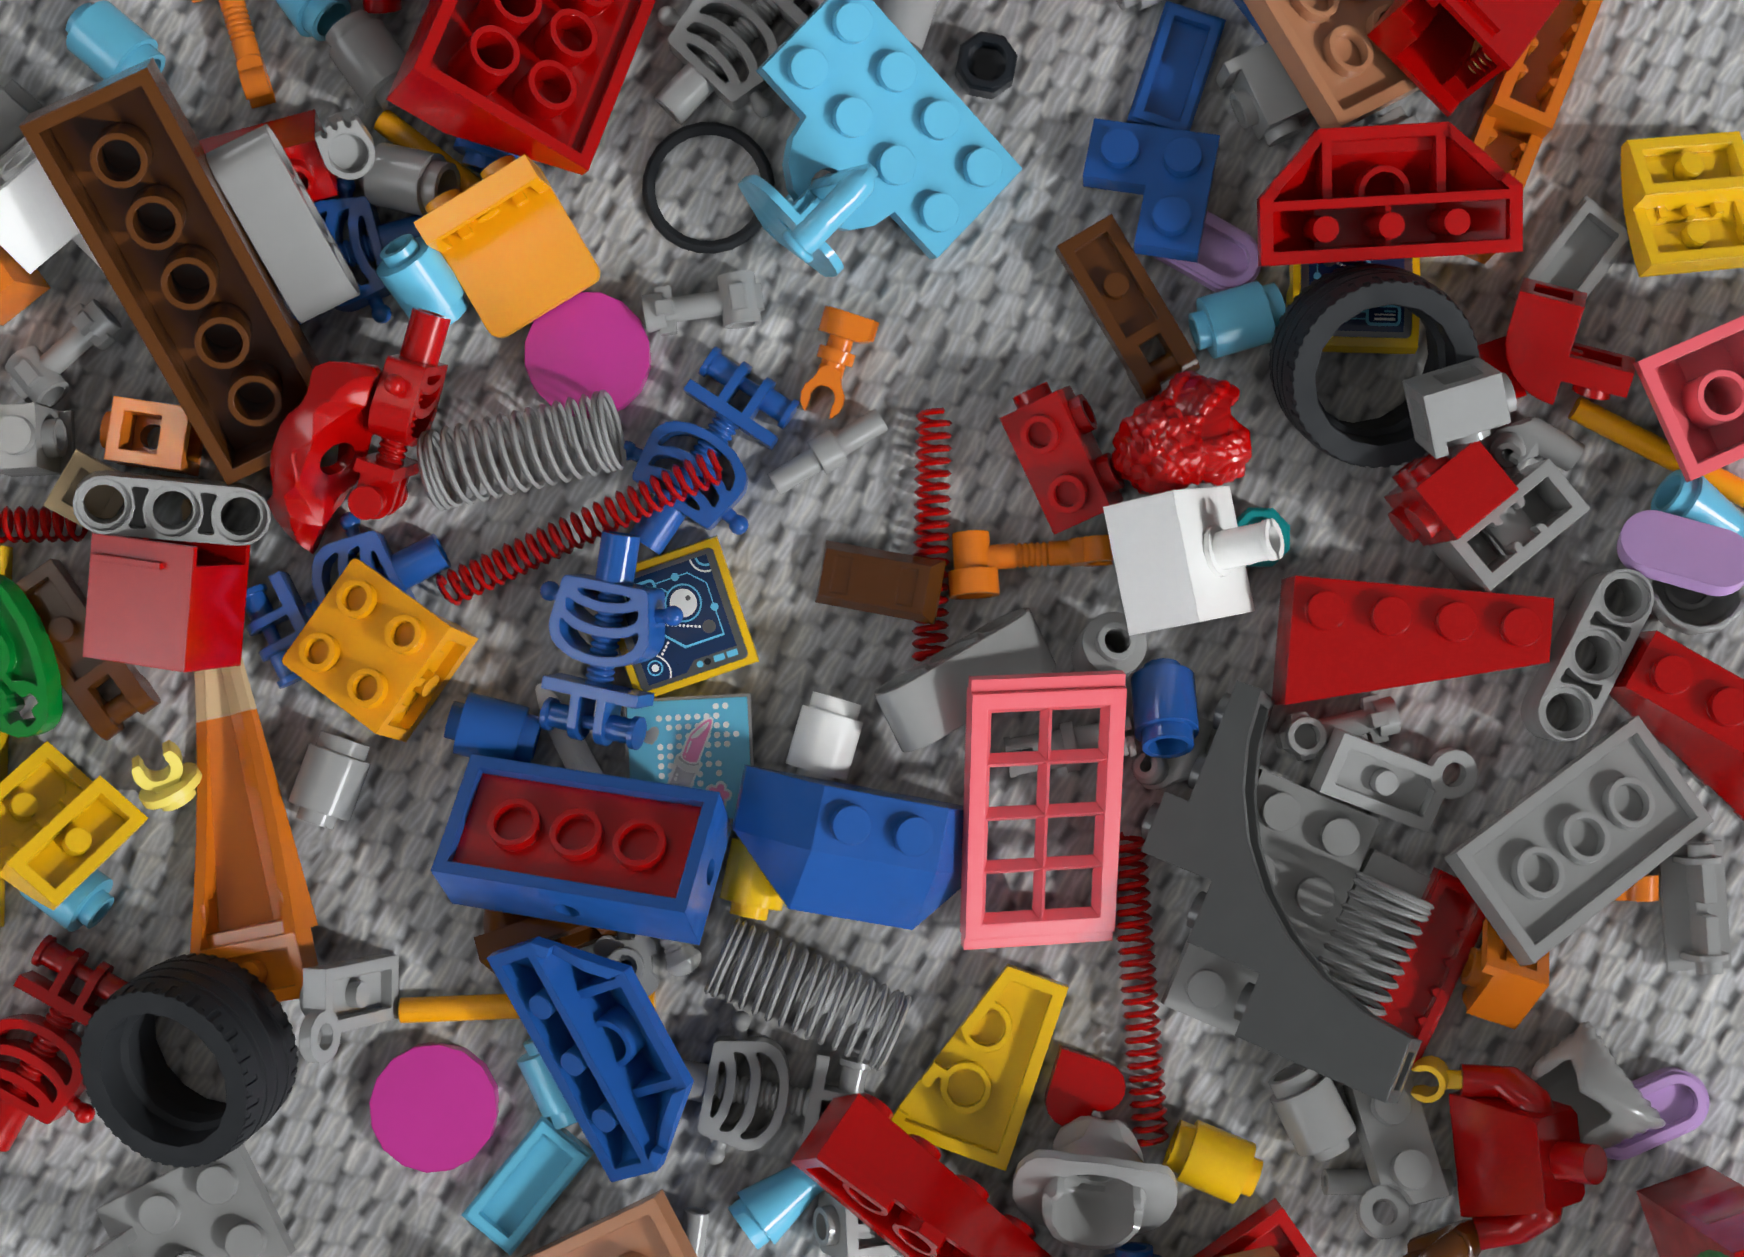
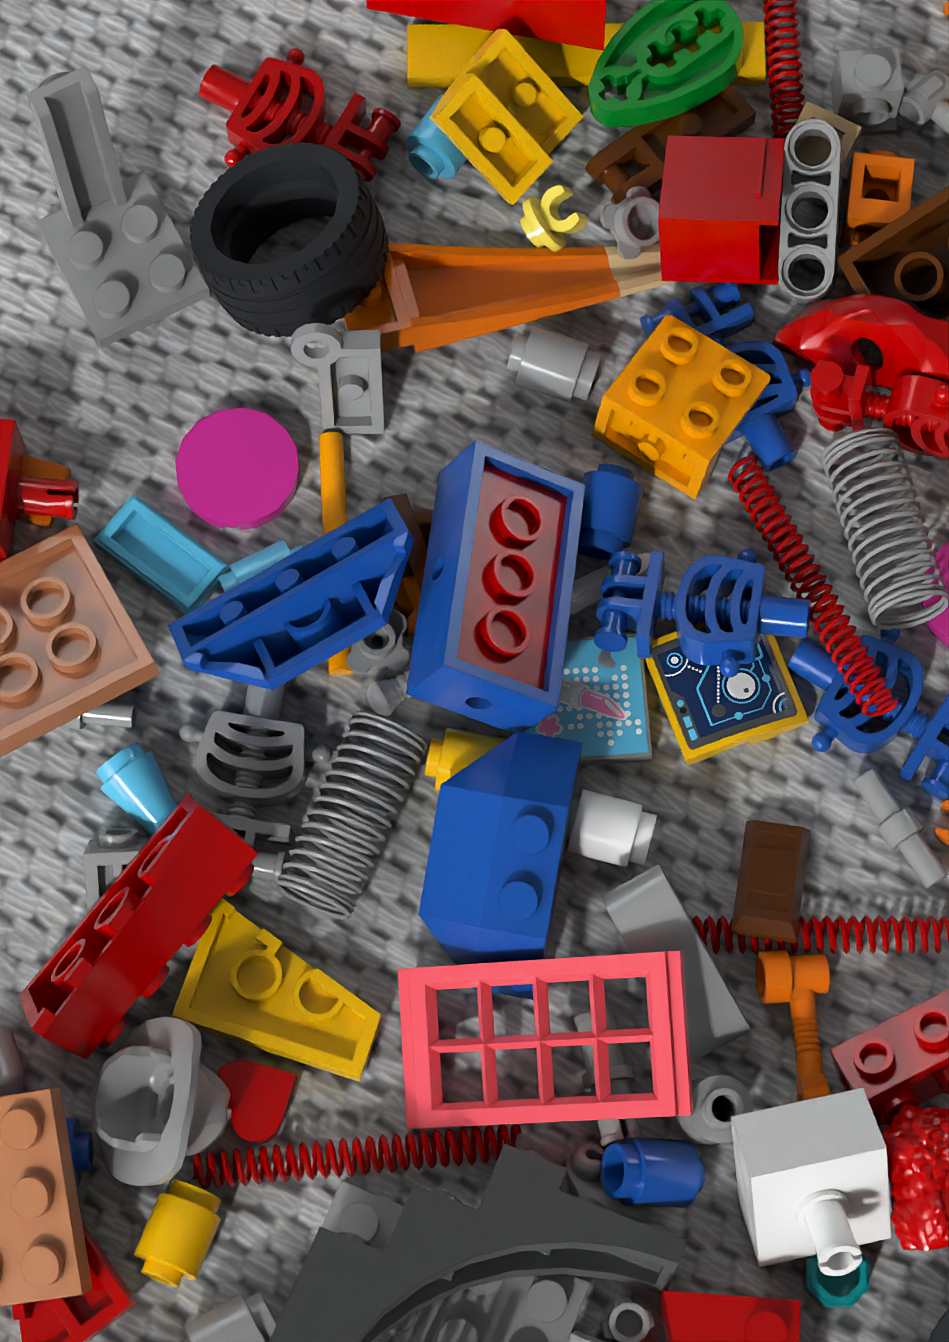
camera: 90 degrees right, 15 degrees down
(171, 709) = (618, 216): none -> light grey plate

